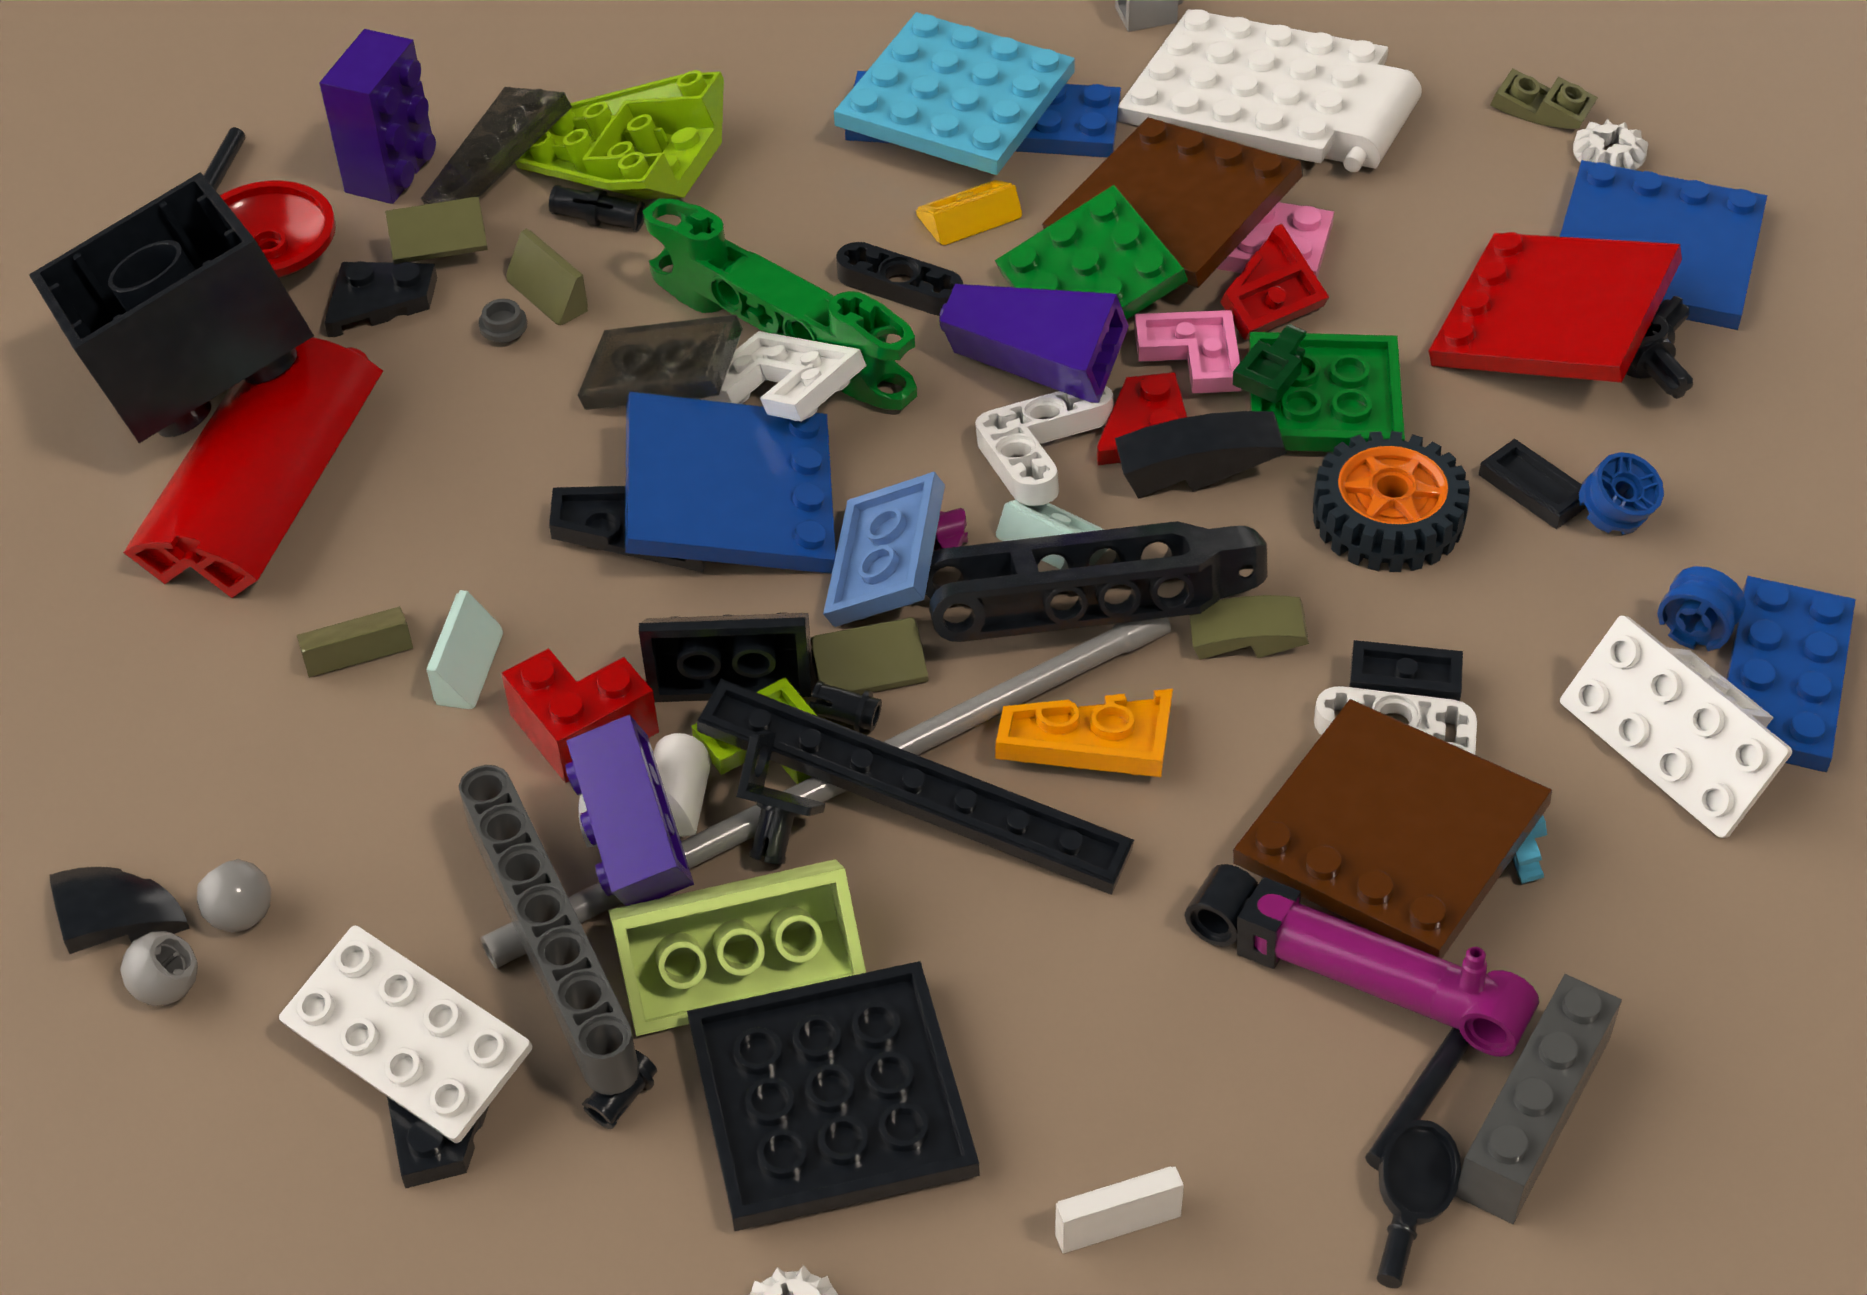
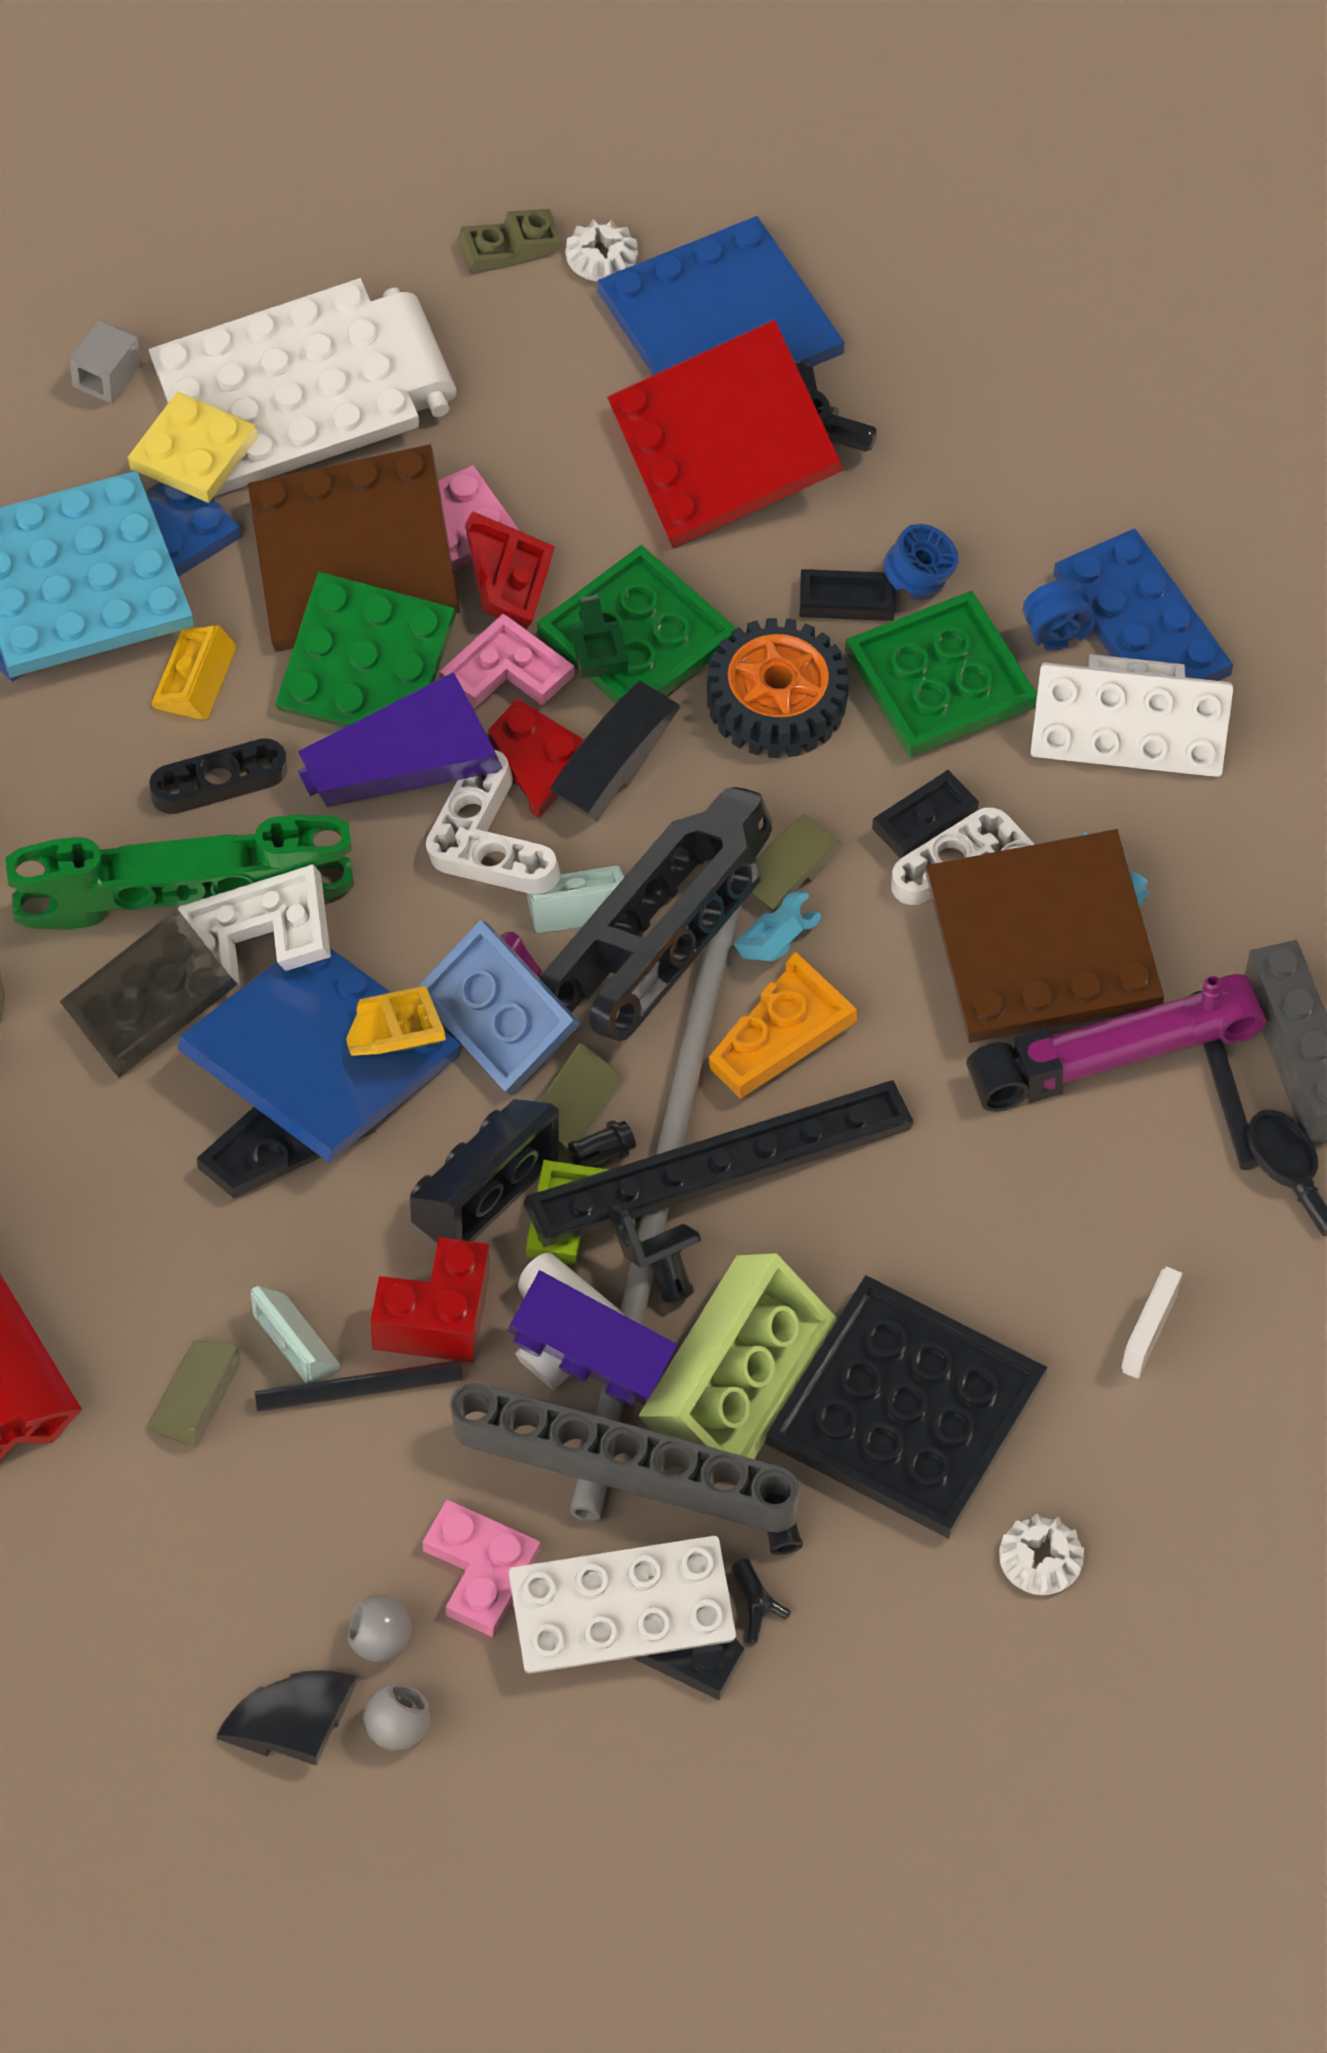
camera: 50 degrees left, 10 degrees up
(387, 912) = (487, 1554): none -> bright pink plate
(464, 728) = (358, 1385): none -> black bar
(528, 1133) = (756, 1597): none -> black bar
(793, 501) = (395, 1023): none -> yellow slope
(1135, 71) = (193, 447): none -> light yellow plate
(1165, 663) = (772, 932): none -> medium azure plate
(1544, 583) = (941, 673): none -> green plate

